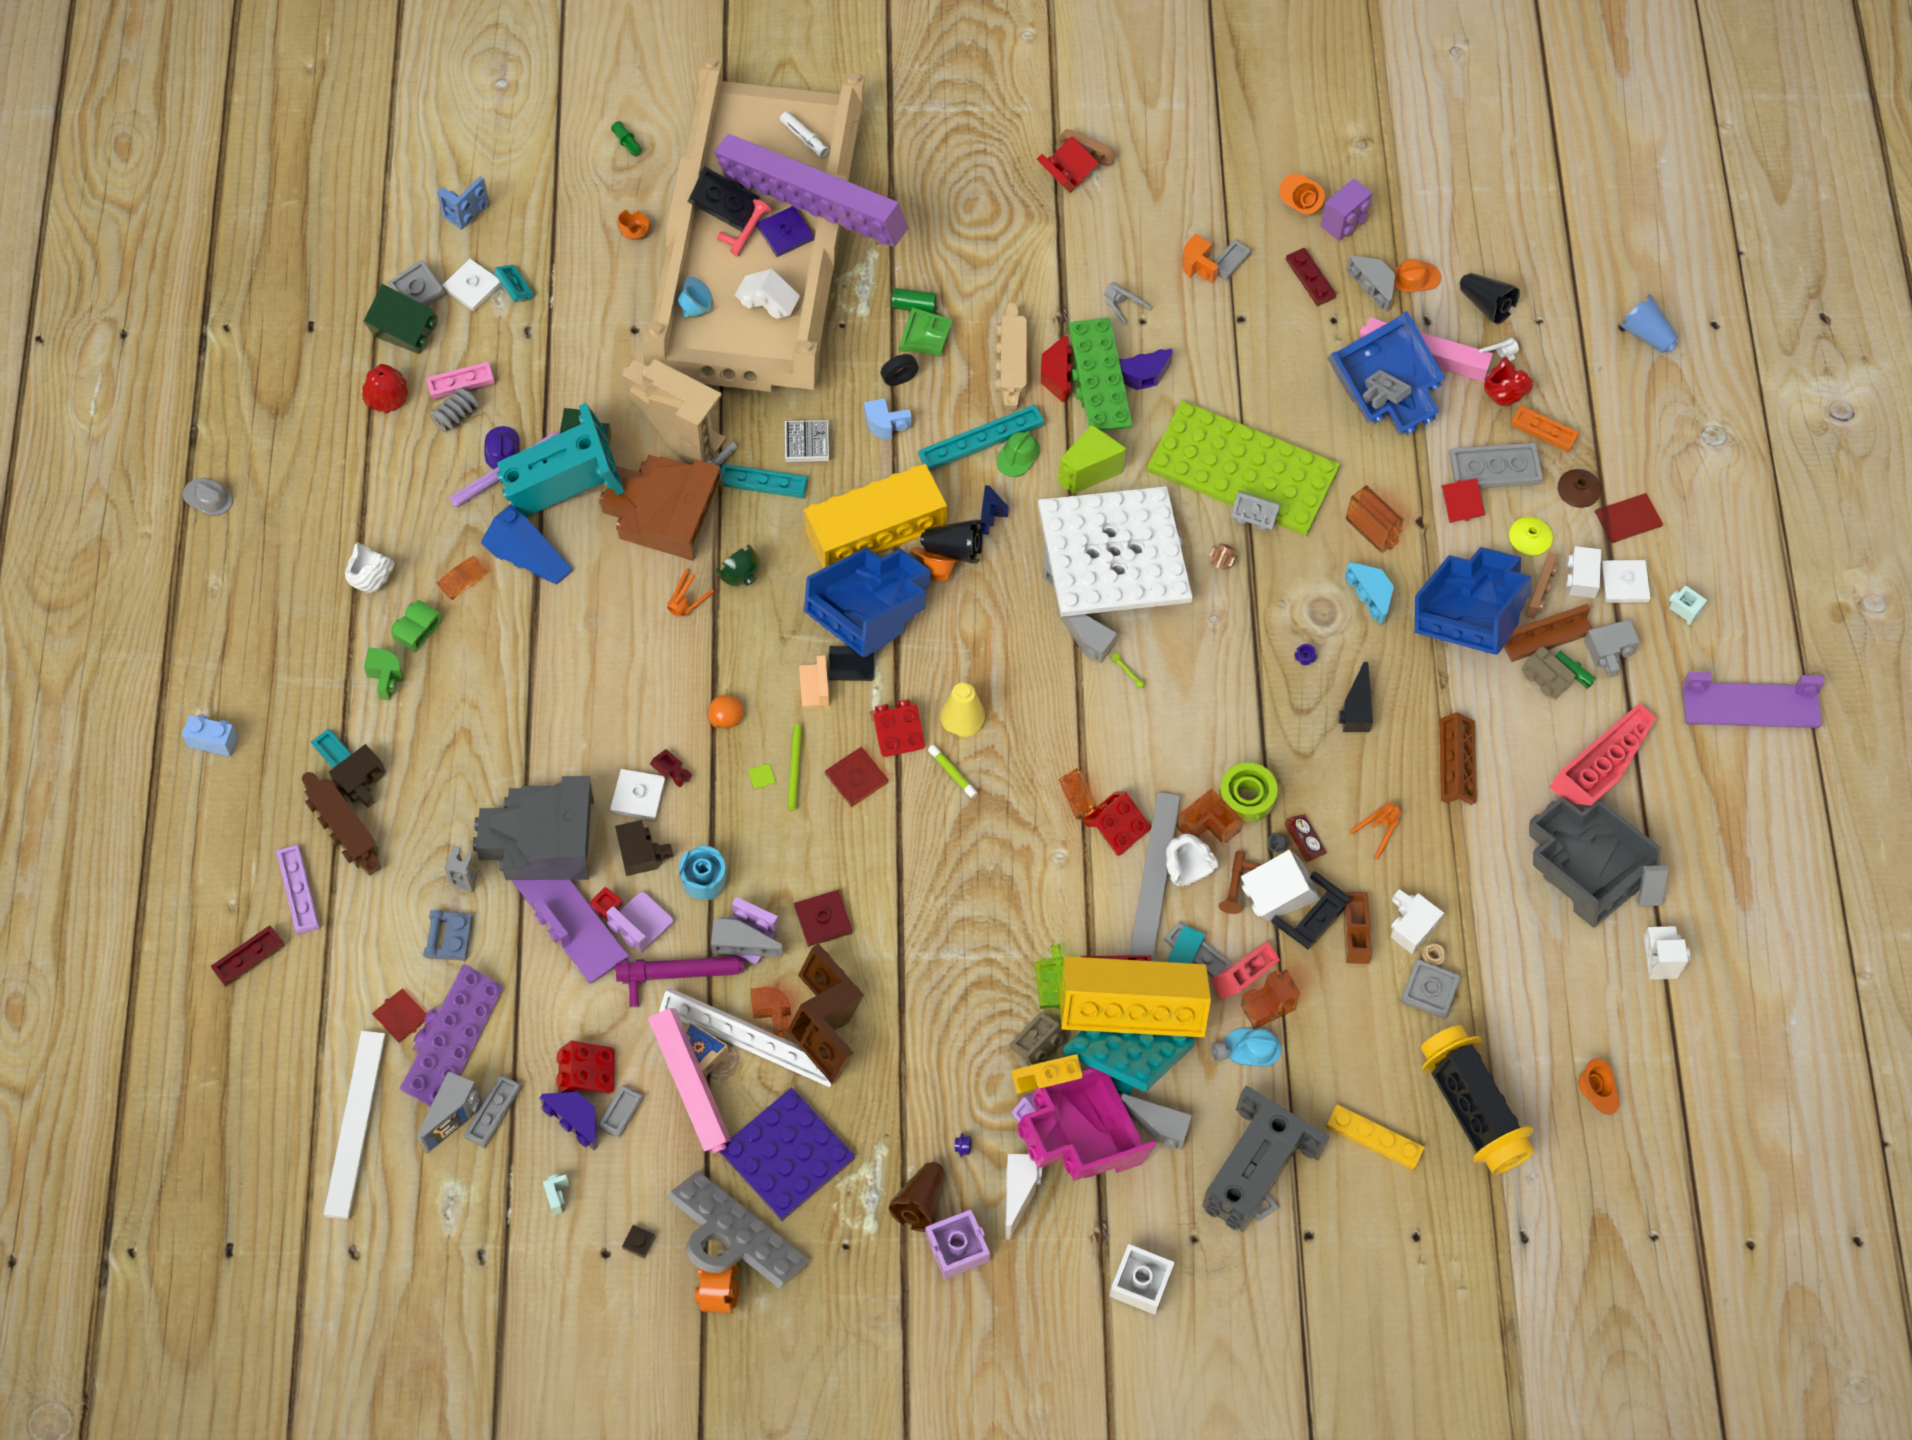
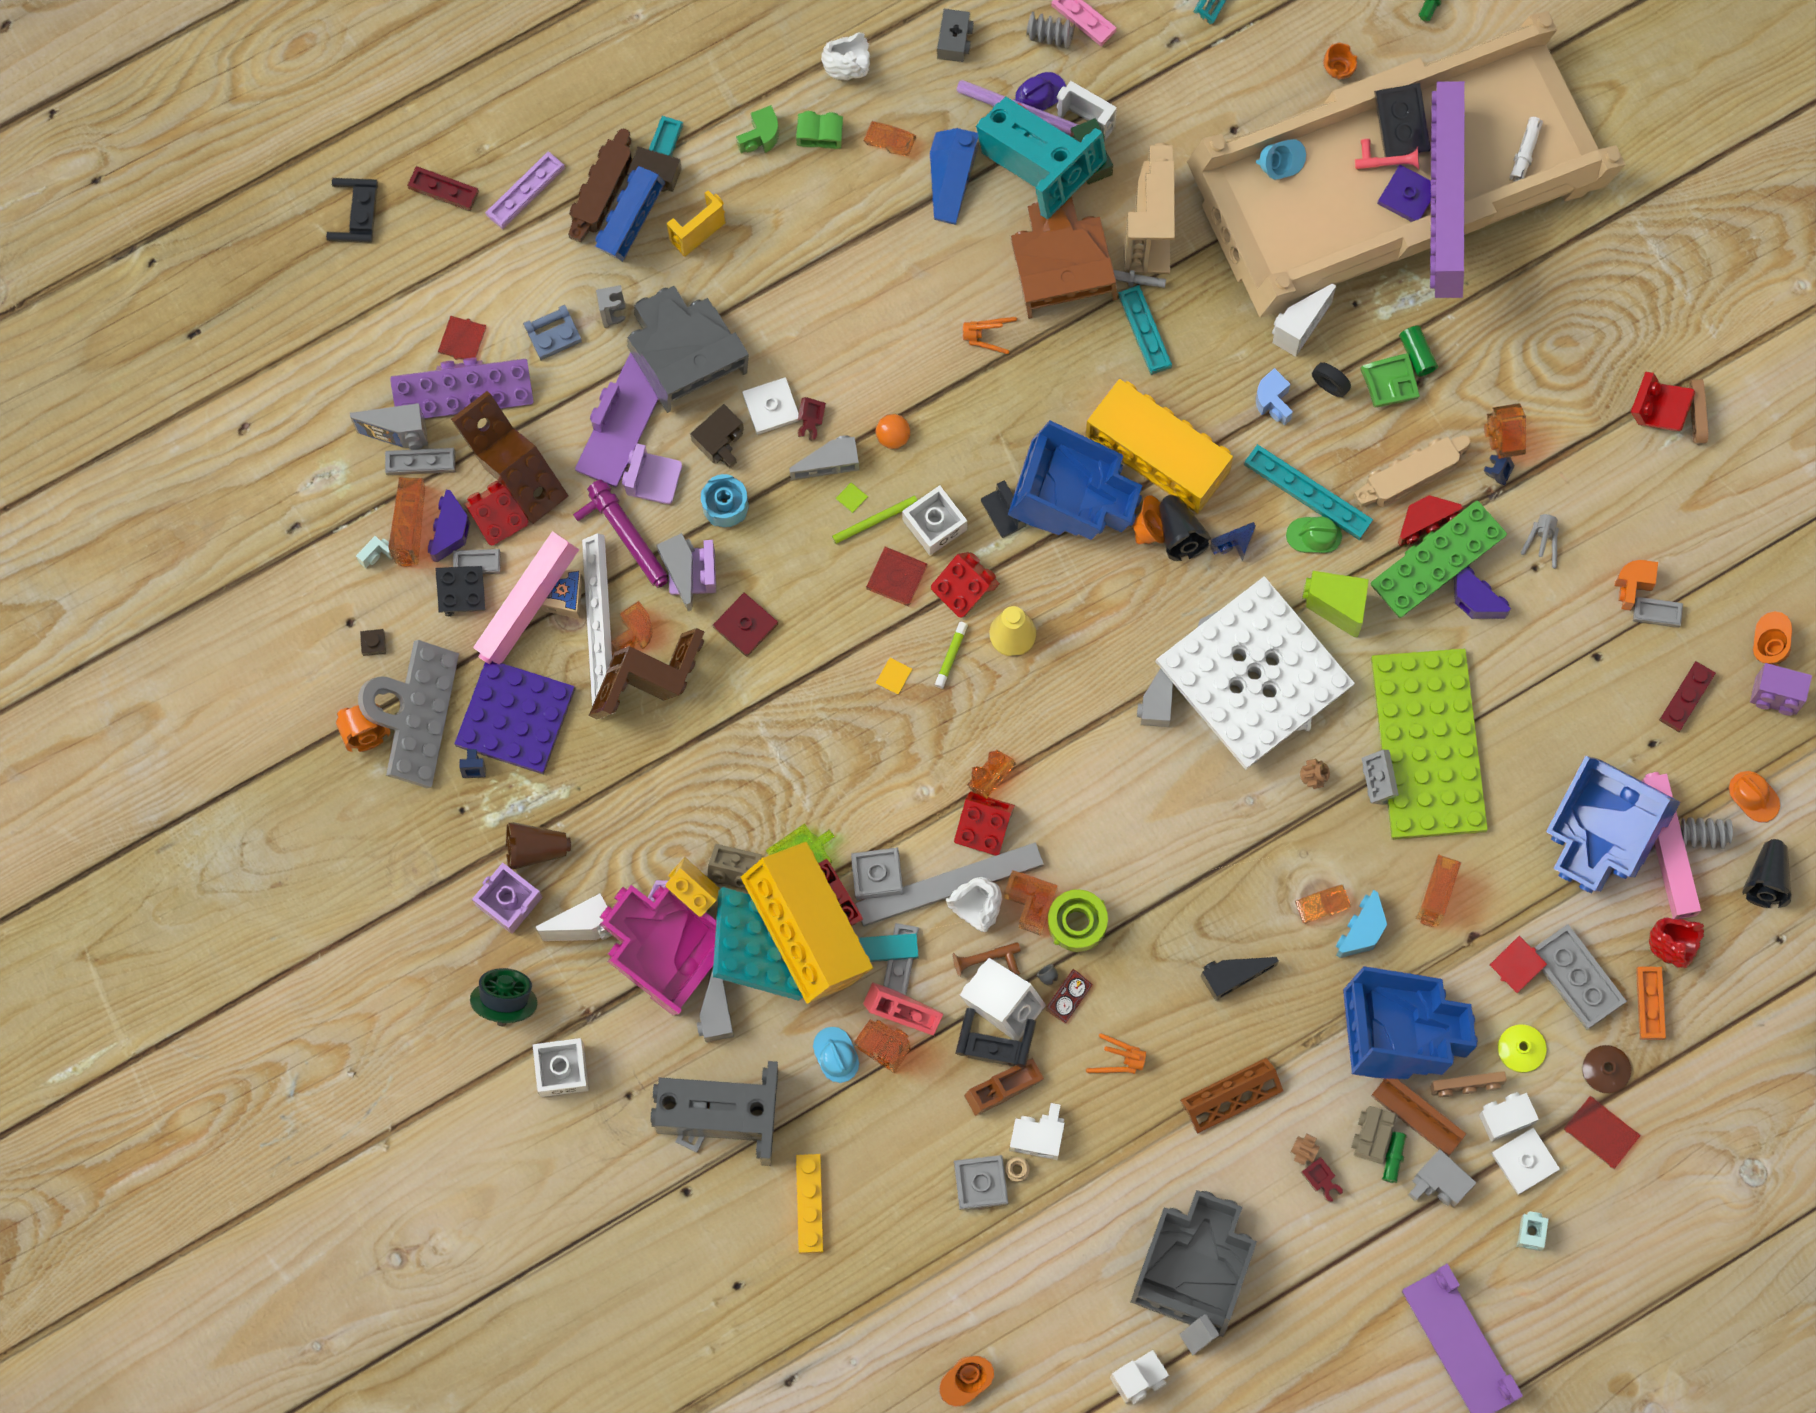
camera: 65 degrees right, 10 degrees up
(210, 735) = (617, 33): light blue brick -> none
(217, 1036) = (362, 210): none -> black plate
(354, 1125) = (348, 362): white tile -> none
(388, 808) = (630, 213): none -> blue slope
(406, 481) = (954, 23): none -> dark grey brick
(436, 779) = (699, 228): none -> yellow panel
(543, 414) = (1087, 106): none -> white panel
(546, 1147) = (407, 522): none -> clear orange slope
(547, 1025) = (509, 457): none -> reddish brown bracket
(604, 901) = (652, 438): red tile -> none
(640, 1136) = (460, 589): none -> black hinge
(720, 766) = (832, 458): none -> light grey slope
(740, 567) = (1036, 361): dark green cylinder -> none
(769, 291) = (1323, 213): white brick -> none
(806, 441) = (1207, 342): light grey tile -> none
(812, 1212) = (472, 766): none -> dark blue tile
(814, 683) = (969, 488): light nougat panel -> none
(829, 718) = (934, 520): none -> white brick
(840, 367) = (1301, 319): none -> white slope
(942, 826) = (893, 675): none -> yellow sticker
(963, 1145) = (602, 856): dark purple plate -> none
(1024, 271) = (1507, 430): none -> clear orange brick
(1048, 297) = (1501, 469): none -> dark blue tile
(1050, 1292) = (504, 996): none -> dark green piece
(1112, 928) = (877, 873): none -> light grey plate
(1116, 659) = (1153, 734): lime hinge -> none
(1220, 1051) = (814, 1025): light grey hinge -> none
(1305, 649) = (1259, 908): dark purple plate -> none
(1334, 609) = (1323, 903): none -> clear orange slope
(1373, 278) = (1720, 758): light grey slope -> none
(1386, 387) = (1591, 830): light grey hinge -> none
(1432, 315) = (1707, 832): none -> light grey piece
(1476, 1100) = (884, 1271): black brick -> none
(1505, 348) = (1721, 921): white plant -> none
(1534, 728) = (1305, 1149): none -> medium nougat gear
(1562, 731) = (1319, 1176): none -> dark red plate
(1604, 760) = (1309, 1230): coral wedge -> none

